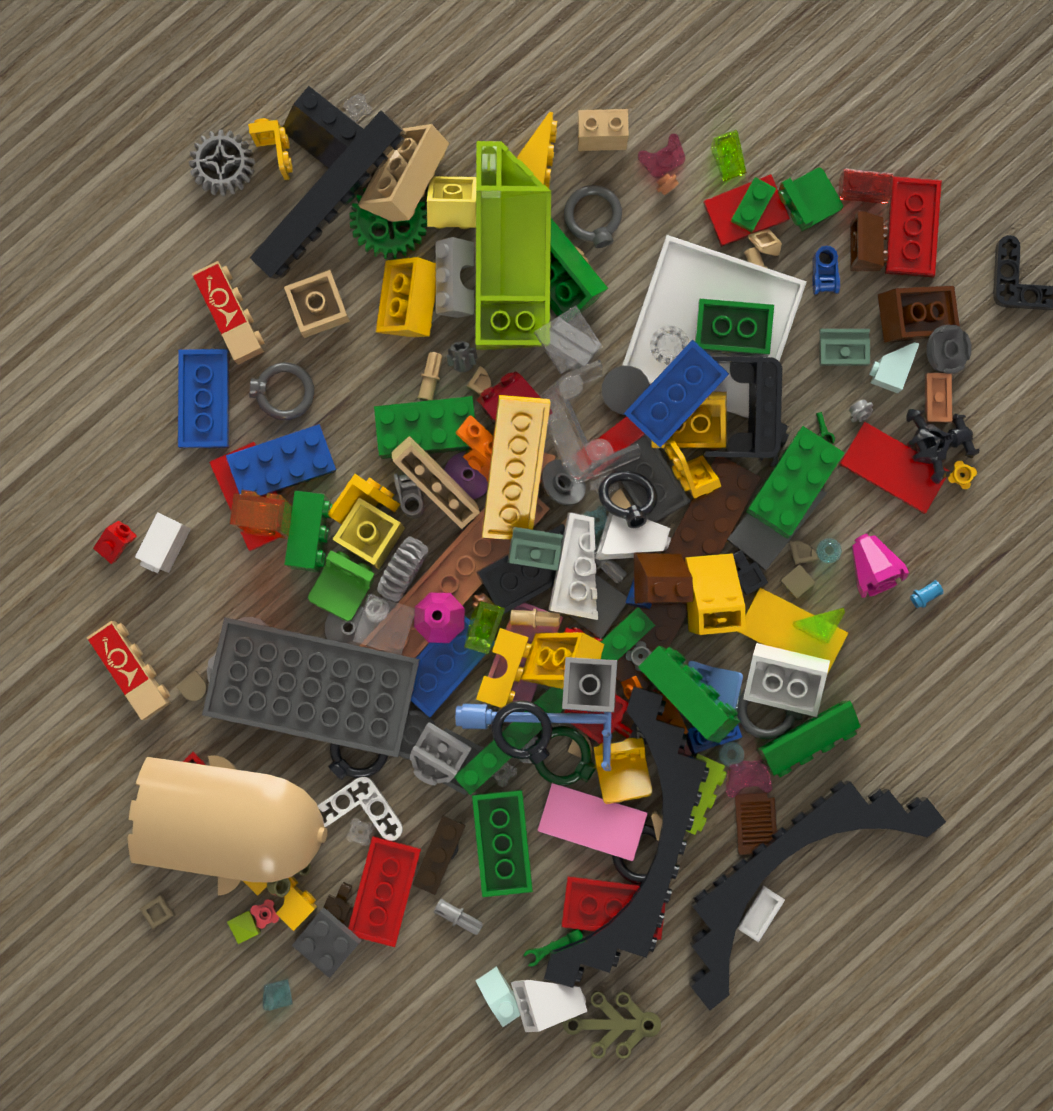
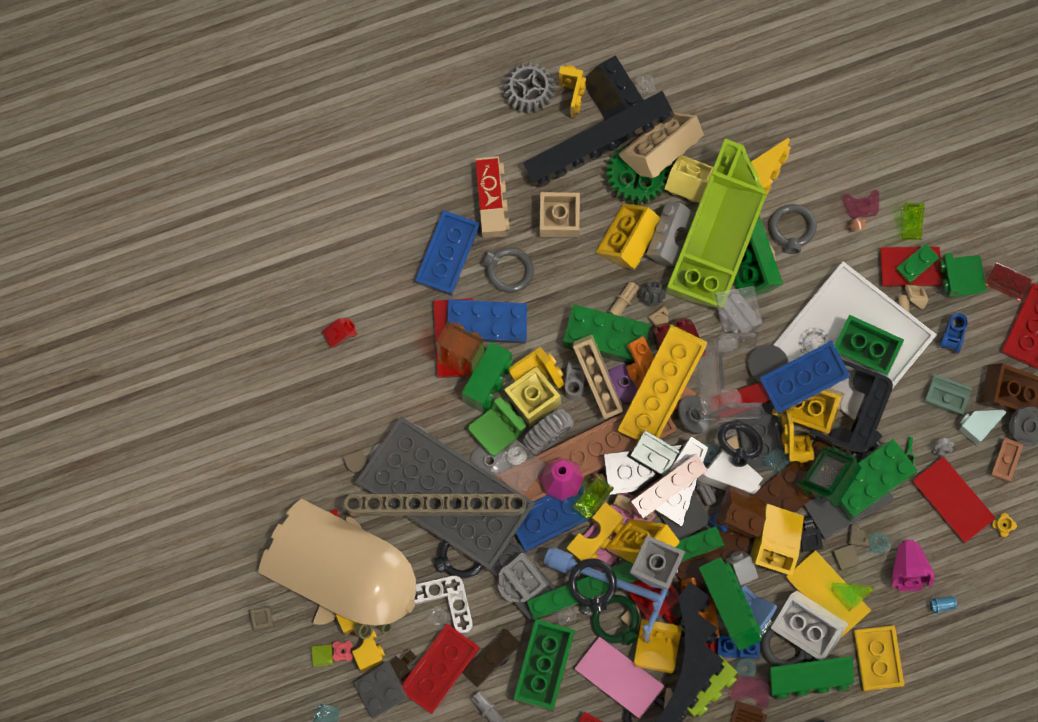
camera: 20 degrees right, 10 degrees down
(129, 670) = (313, 430): brick -> none
(162, 544) = (376, 345): white piece -> none
(292, 709) = (426, 499): none -> dark tan beam
(565, 583) = (667, 486): none -> brick
(602, 129) = (823, 167): tan piece -> none
(633, 655) = (702, 560): light grey plate -> none
(678, 500) = (777, 460): none -> clear light blue slope
(684, 641) = (742, 566): none -> light grey brick
(747, 498) = (830, 475): none -> dark green window
(867, 242) = (994, 323): reddish brown slope -> none
(876, 684) = (878, 658): none -> yellow tile
(935, 443) = (990, 491): black piece -> none

